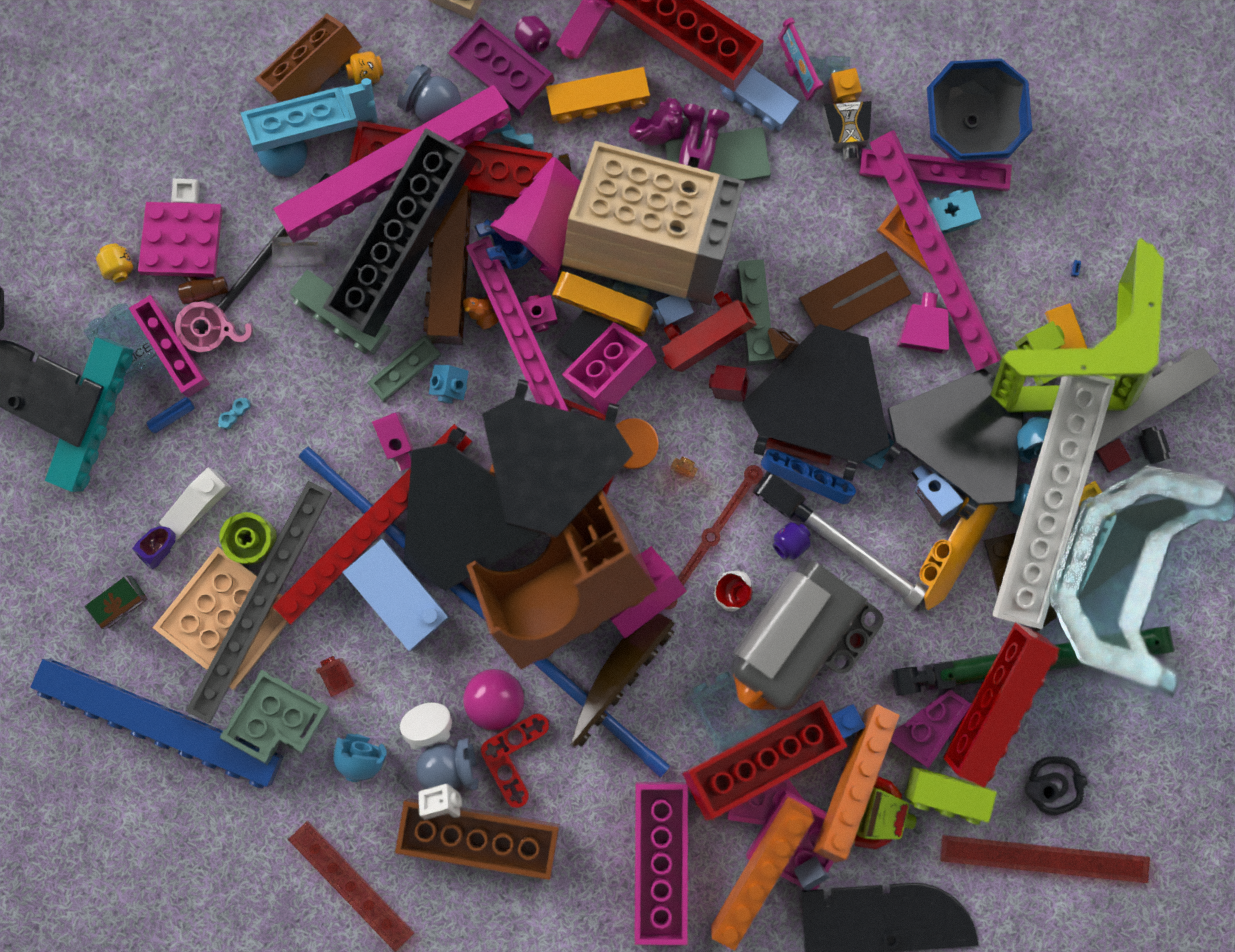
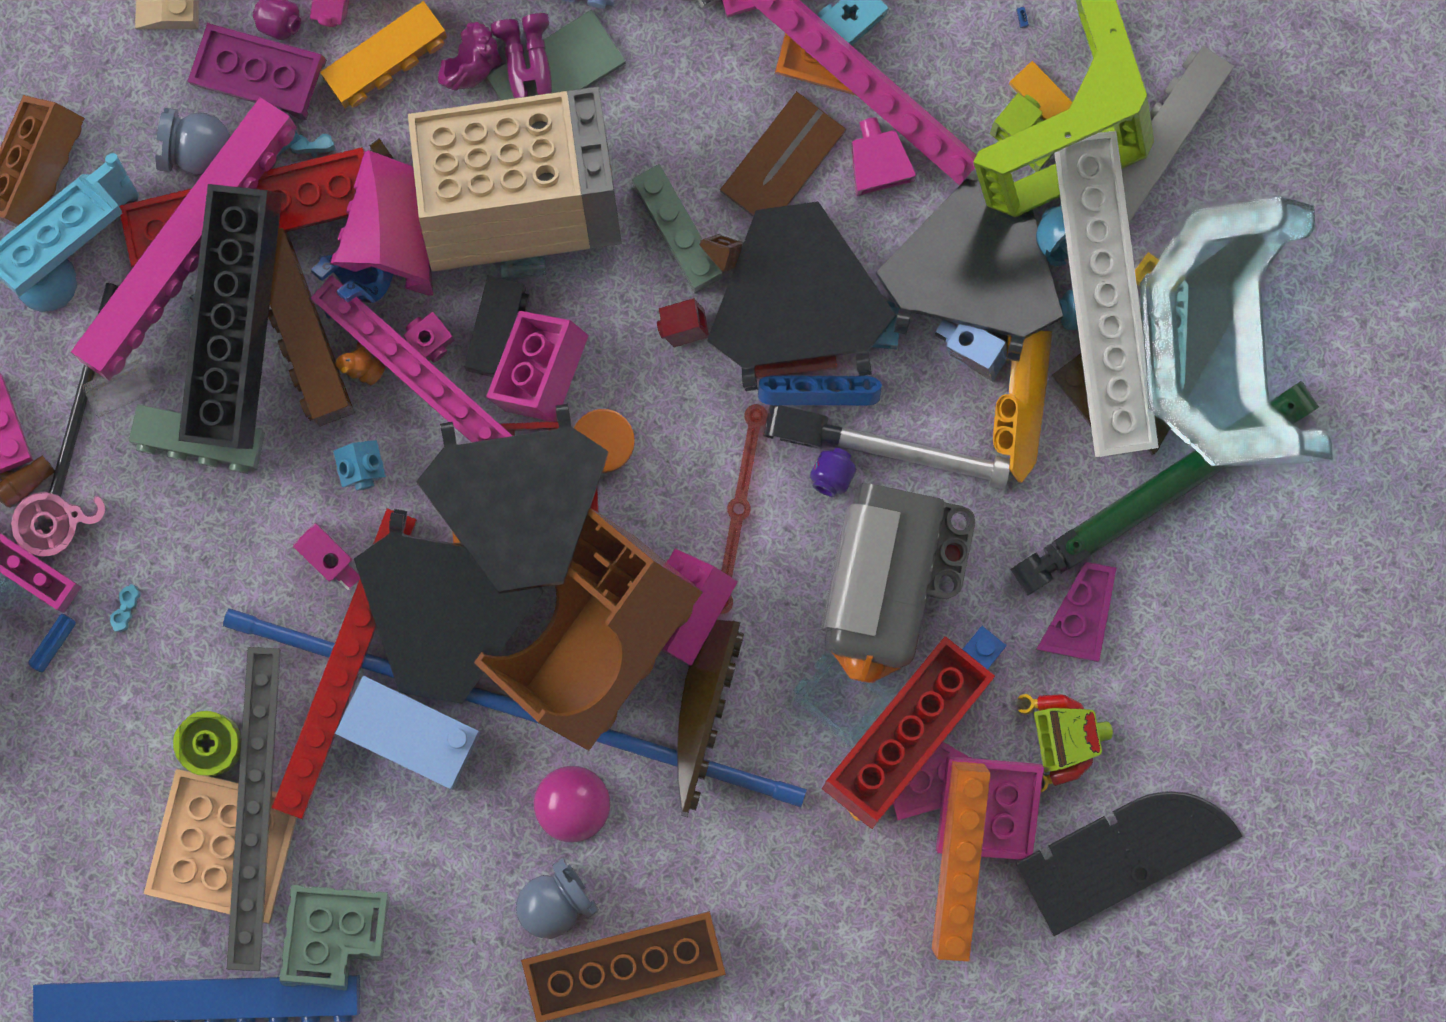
camera: 25 degrees left, 0 degrees up
(115, 601) = (86, 884): dark green piece -> none
(155, 545) = (103, 800): rock -> none
(195, 502) = (126, 732): white slope -> none
(335, 675) = (378, 856): clear red bracket -> none
(357, 758) = (446, 938): dark azure cylinder -> none
(364, 66) = (98, 141): light orange head -> none
(404, 368) = (299, 470): sand green tile -> none
(426, 725) = (508, 865): white tile -> none
(439, 801) = (561, 941): white bracket -> none
(503, 757) = (613, 865): red beam -> none
(604, 302) = (498, 293): light orange beam -> none
(661, 863) = (843, 901): dark pink brick -> none
(672, 310) = (580, 268): light blue brick -> none
(684, 466) = (673, 442): clear orange plate -> none
(708, 335) = (635, 278): red brick -> none
(733, 590) = (791, 558): red hair -> none
(811, 873) = (1018, 837): sand blue slope -> none
(856, 784) = (1023, 713): orange brick -> none
(949, 795) = (1135, 680): lime brick -> none
(1000, 704) = (1146, 552): red brick -> none
(1044, 858) = (1274, 705): clear red tile -> none
(1048, 792) = (1238, 626): black piece -> none
(1113, 455) = (1156, 214): dark red tile -> none
(1154, 445) = (1197, 182): black brick -> none

